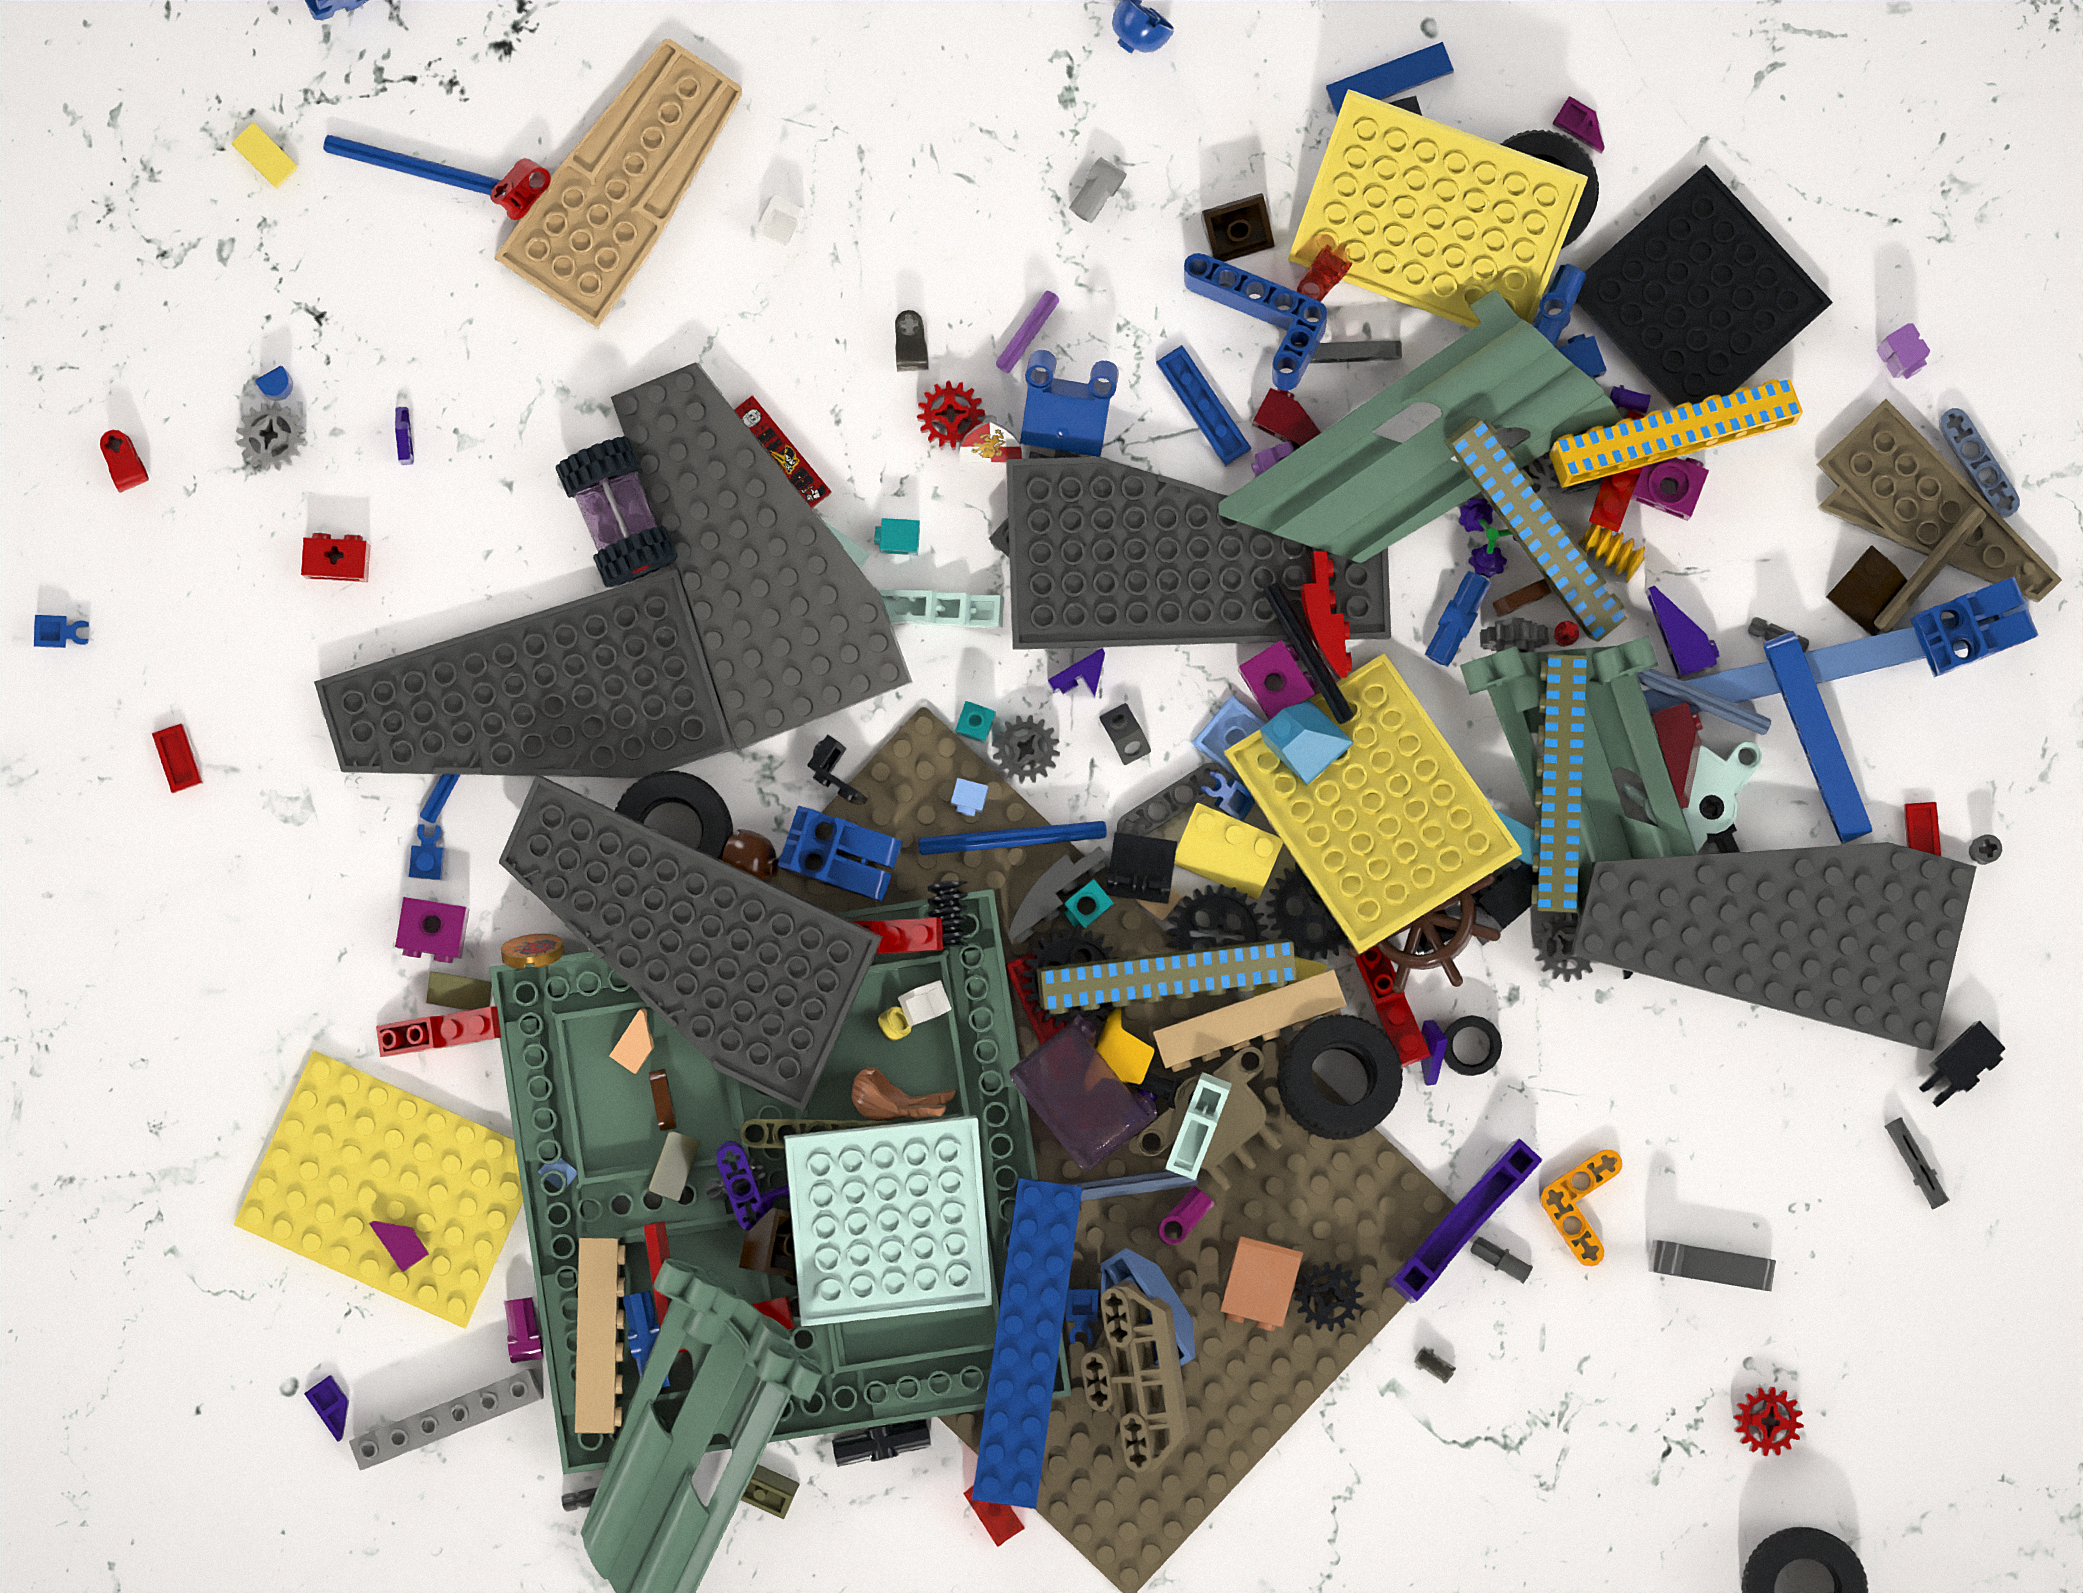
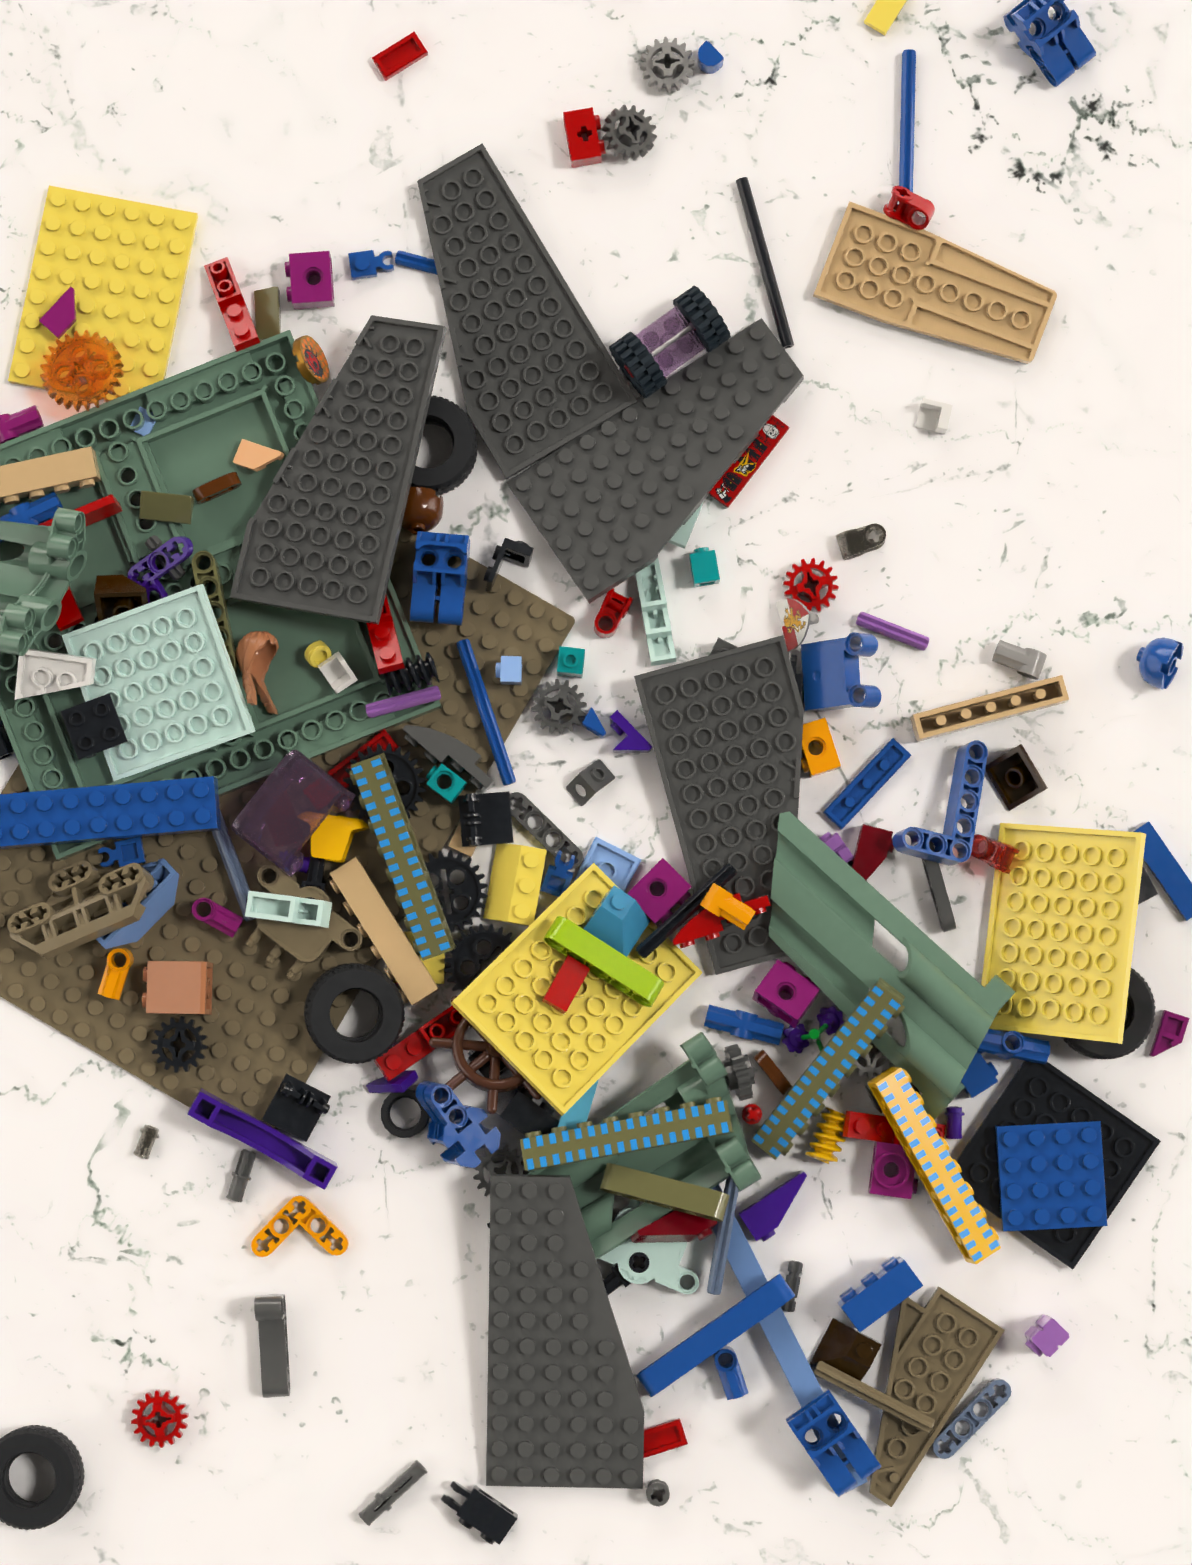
camera: 75 degrees right, 0 degrees up
(356, 506) = (629, 131): none -> dark grey gear
(403, 436) = (691, 166): dark purple tile -> none
(458, 1252) = (64, 359): none -> clear orange gear
(543, 377) = (764, 262): none -> black piece
(845, 1346) = (50, 672): none -> white wing
(922, 1311) = (93, 726): none -> black hinge
(923, 655) = (613, 609): none -> red piece
(979, 932) = (403, 701): none -> medium lavender axle
(1056, 713) = (593, 724): none -> blue slope
(1149, 239) = (989, 708): none -> tan brick
(1163, 443) = (826, 761): none -> light orange brick
(1228, 1356) = (115, 976): none -> light orange piece
(1314, 604) = (724, 904): none -> light orange piece
(1348, 763) = (604, 961): none -> lime beam
(1366, 813) = (566, 984): none -> red tile
(1432, 541) = (784, 978): none -> magenta brick
(1435, 1173) = (296, 1107): none -> black hinge
(1501, 985) = (456, 1125): none -> blue connector
(1638, 754) = (664, 1192): none -> olive beam
(1718, 300) = (1051, 1176): none -> blue plate
(1810, 533) = (879, 1293): none -> blue brick
(1867, 731) = (730, 1375): none -> blue piece

